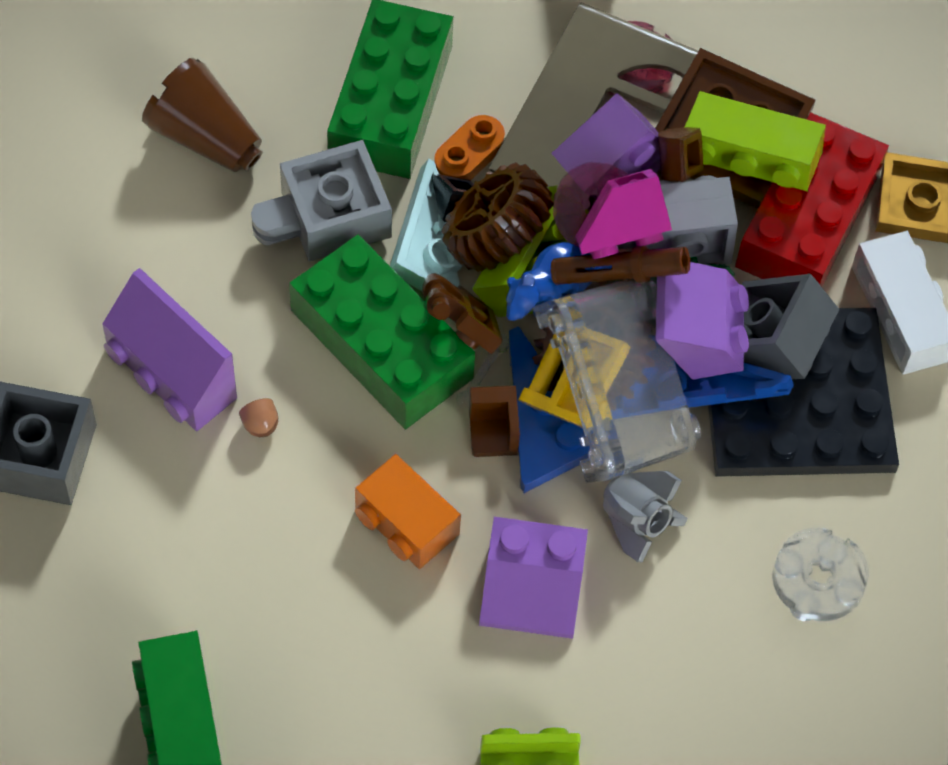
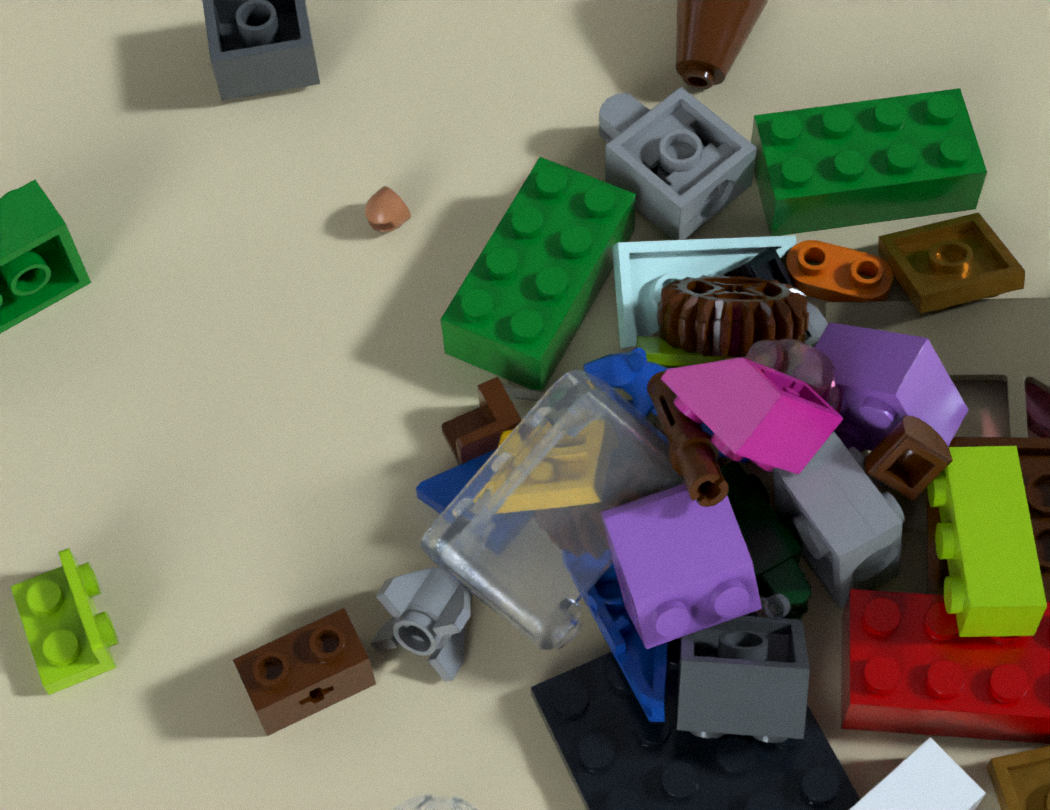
camera: 75 degrees right, 0 degrees up
(169, 352) = (414, 100): medium lavender slope -> none
(406, 512) = (327, 383): orange brick -> none
(473, 318) = (573, 338): reddish brown plate -> none
(504, 76) = (951, 262): none -> pearl gold plate
(533, 577) = (298, 537): medium lavender slope -> none
(650, 606) = (305, 671): none -> reddish brown brick

